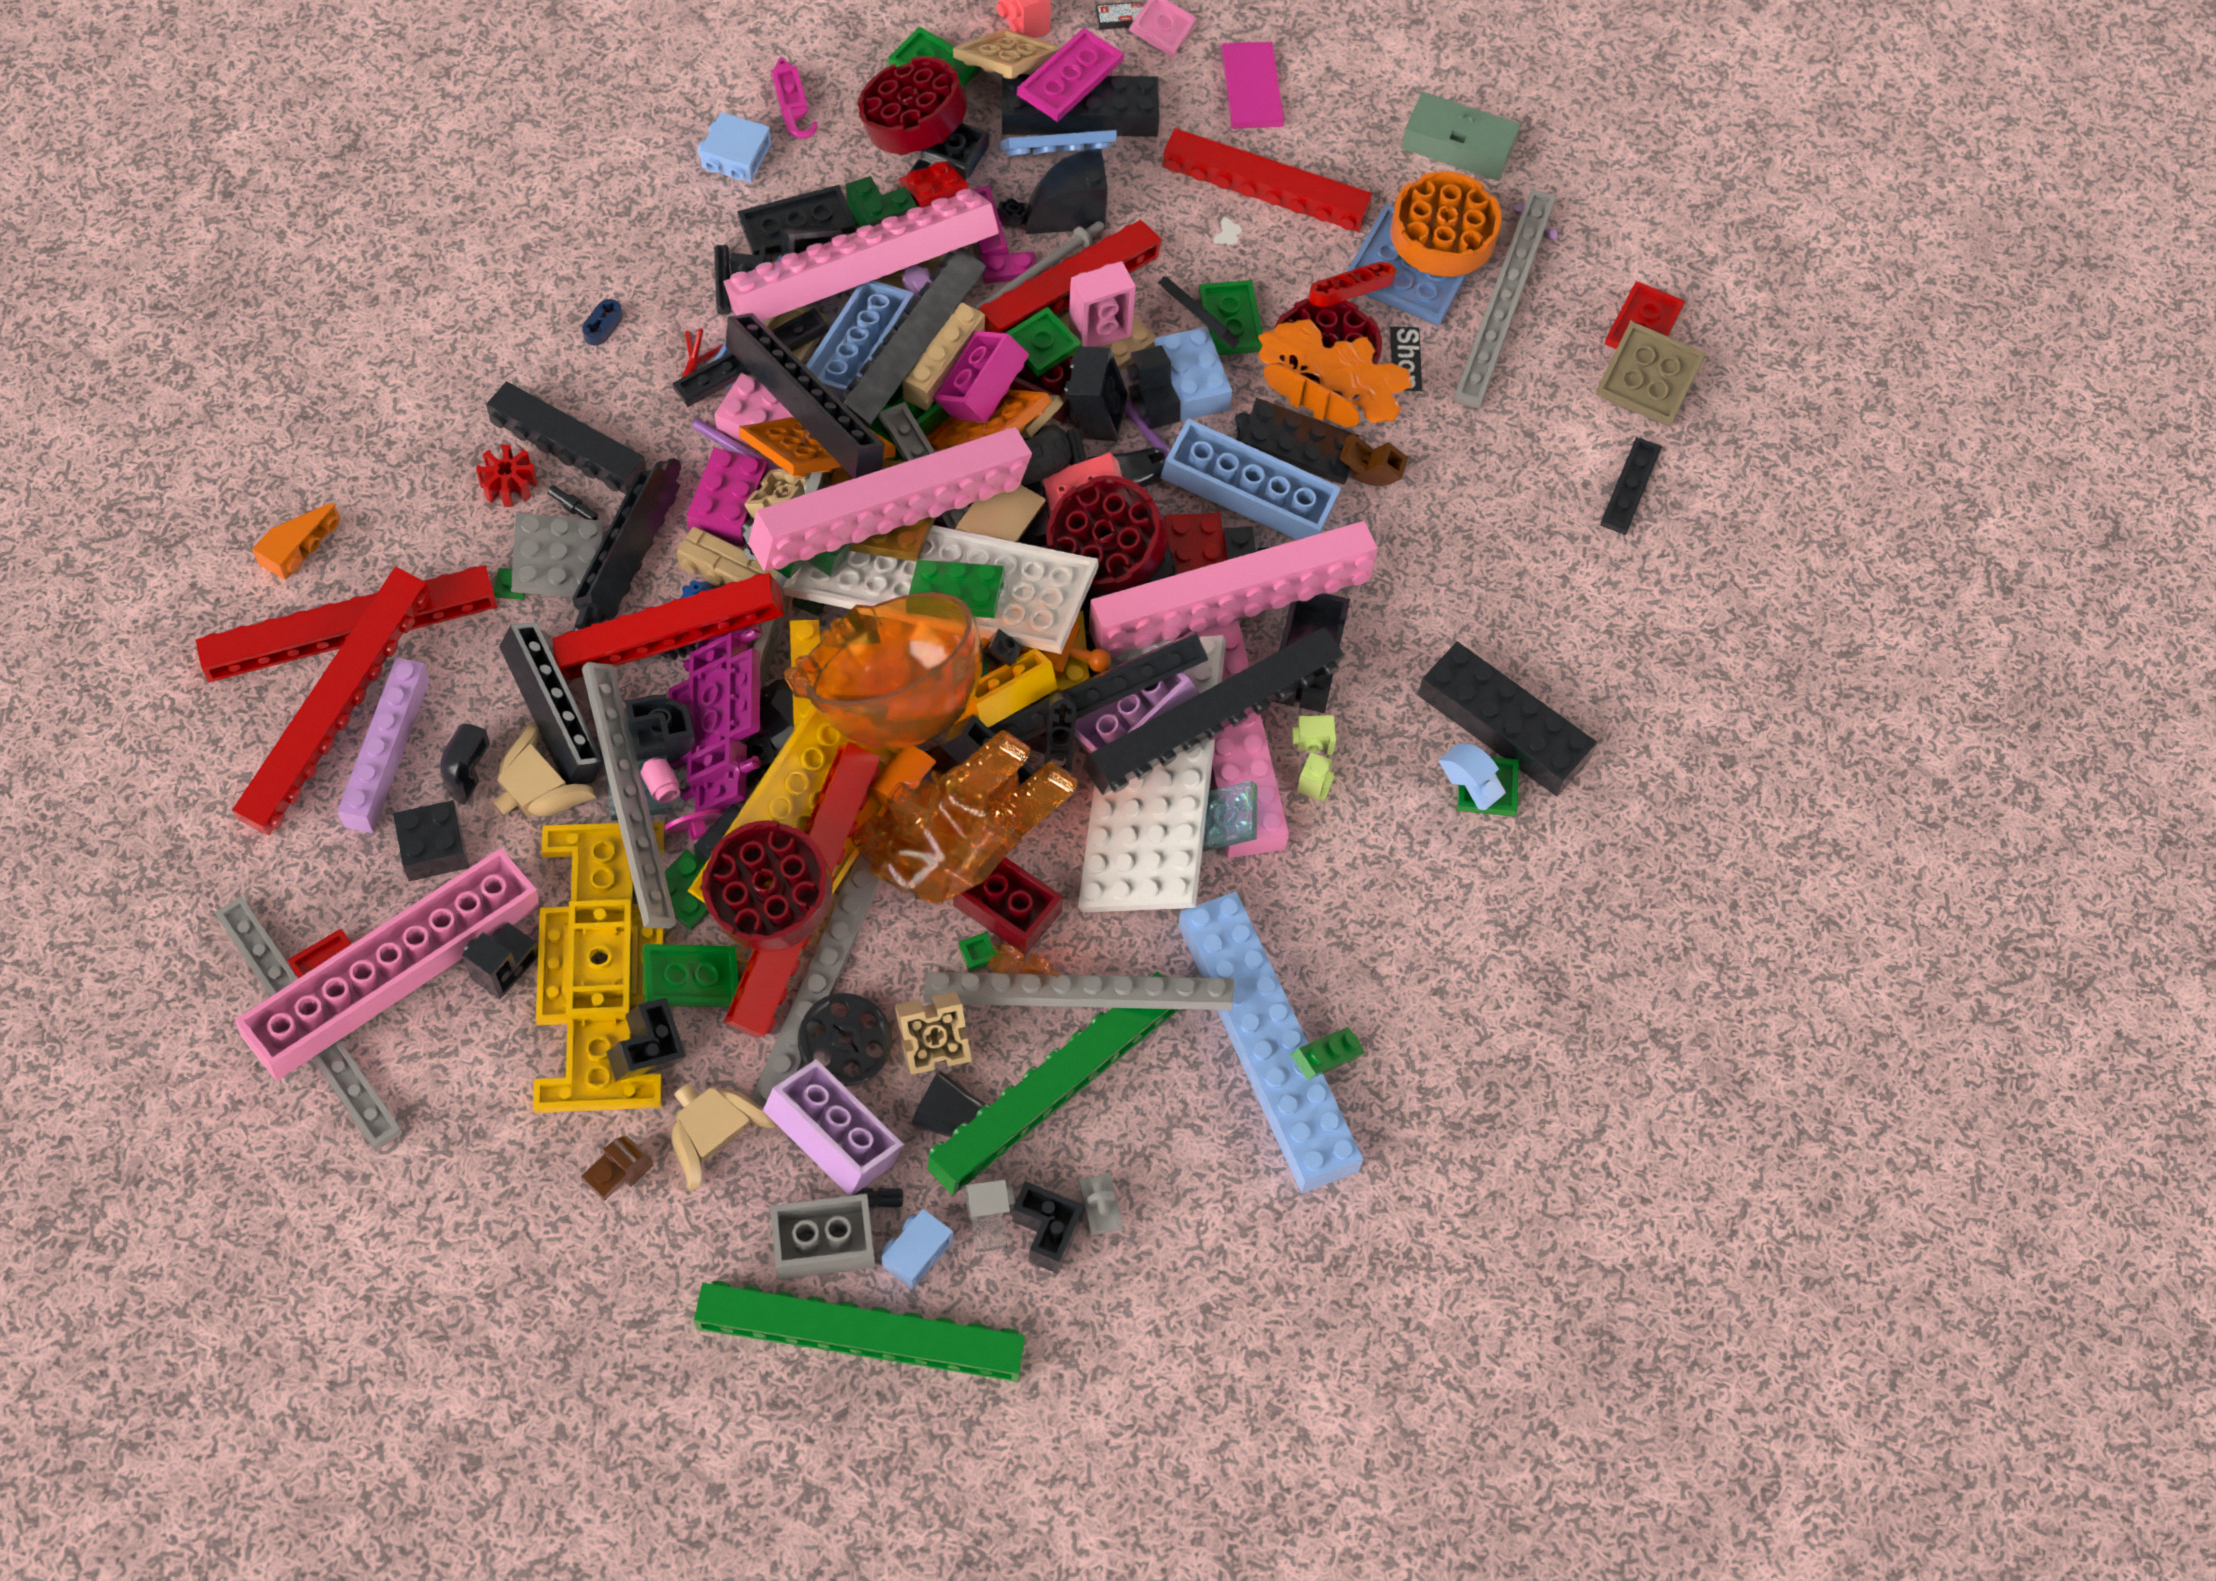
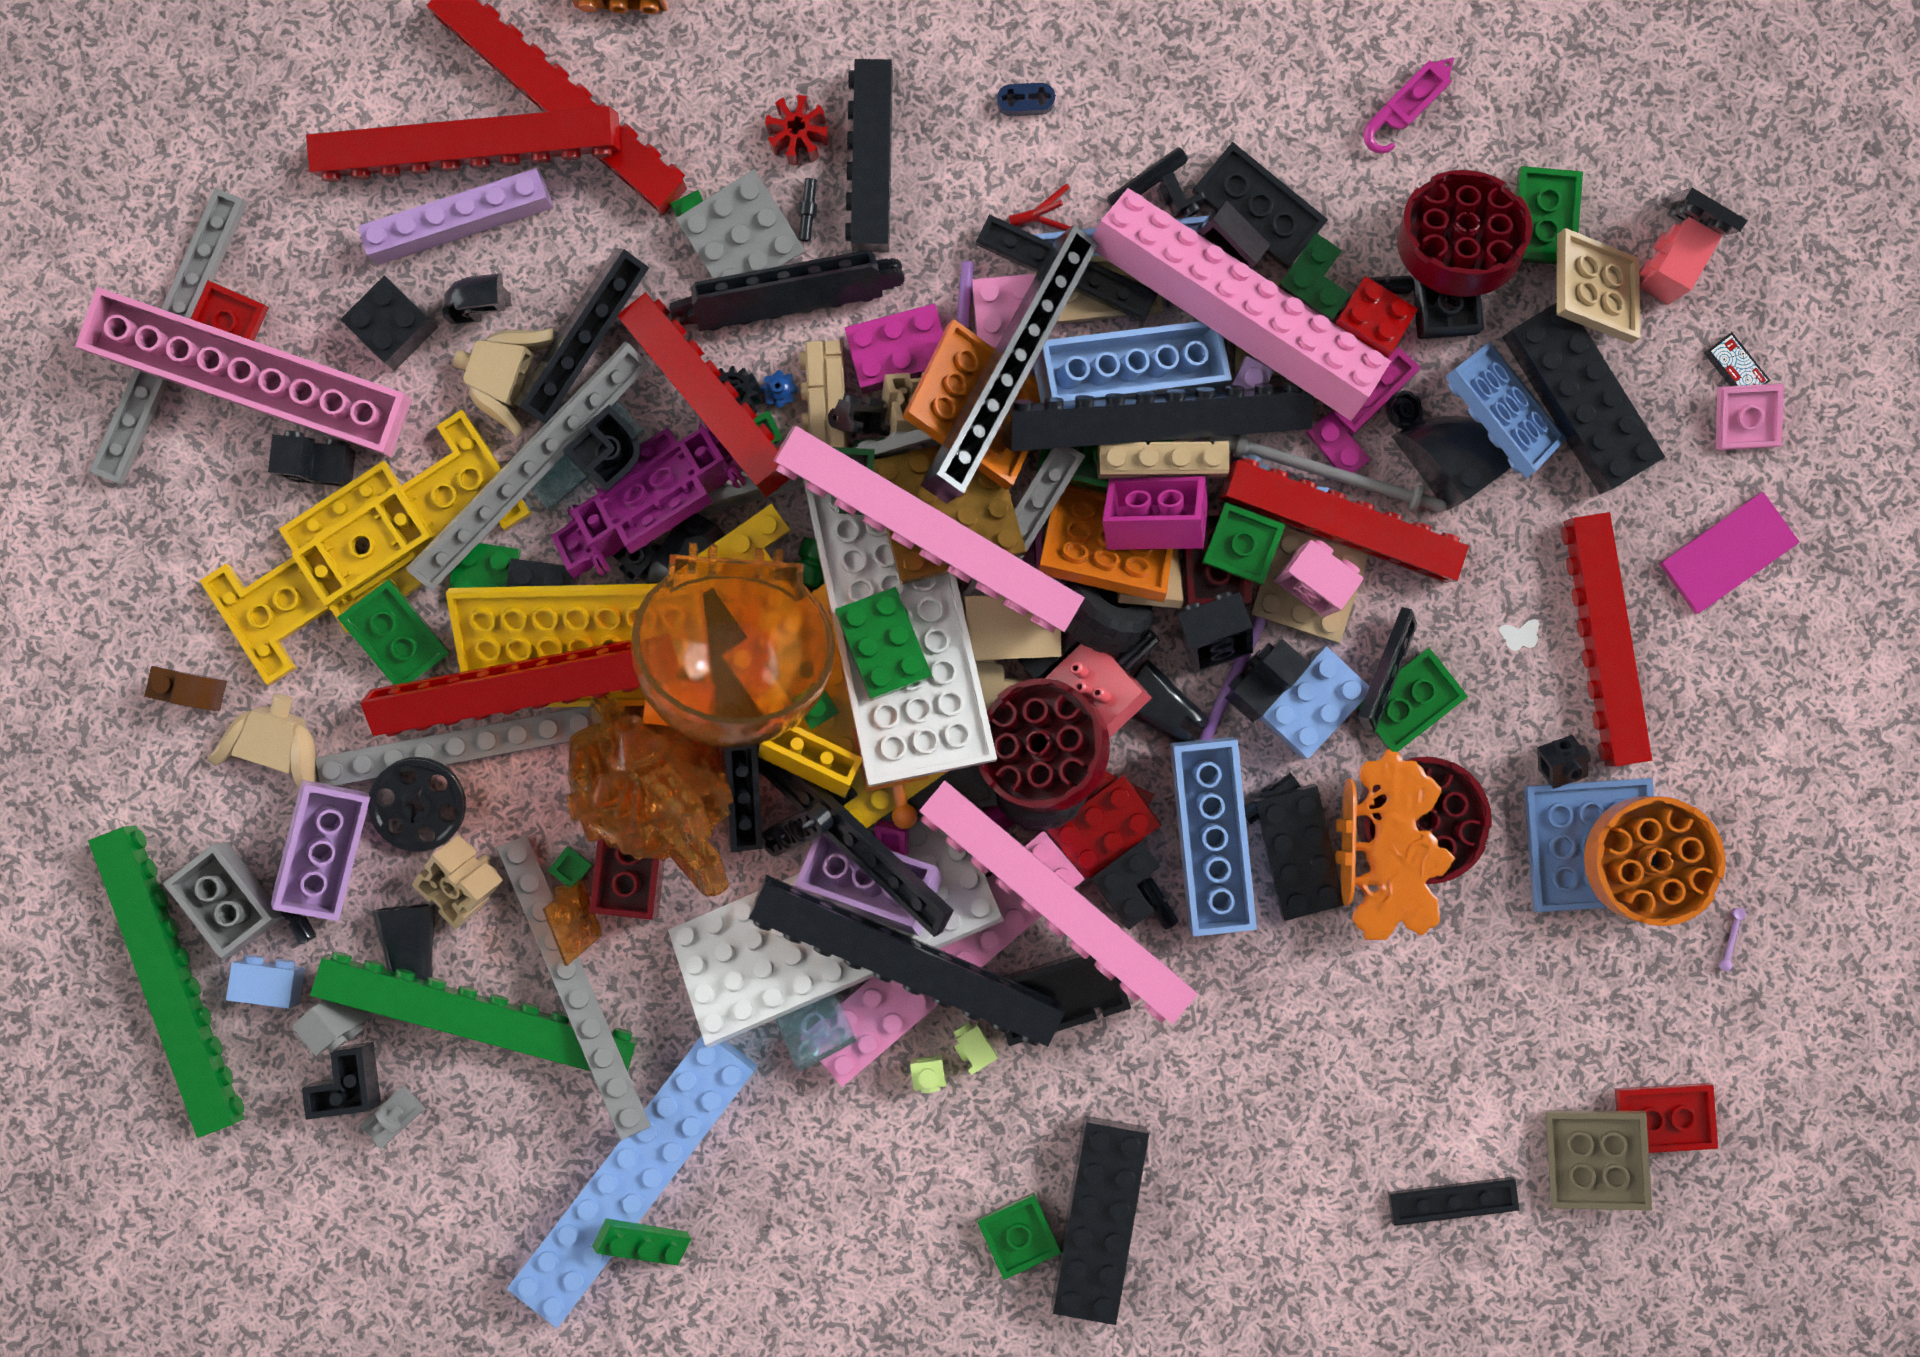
camera: 65 degrees right, 25 degrees up
(653, 1042) = (297, 649): black brick -> none
(660, 780) = (558, 486): bright pink brick -> none
(694, 823) = (536, 541): dark pink piece -> none
(735, 147) = (1308, 88): light blue brick -> none
(762, 916) = (506, 656): dark red brick -> none
(1000, 650) = (839, 729): black bracket -> none
(1070, 74) = (1602, 370): dark pink plate -> none
(1338, 247) = (1563, 761): none -> black brick
(1354, 284) = (1514, 810): red beam -> none
(1373, 466) = (1316, 940): reddish brown brick -> none
(1407, 353) = (1476, 897): black sticker -> none
(1460, 136) = (1793, 808): sand green brick -> none
(1476, 770) = (1009, 1224): light blue brick -> none
(1504, 299) = (1609, 962): light grey plate -> none

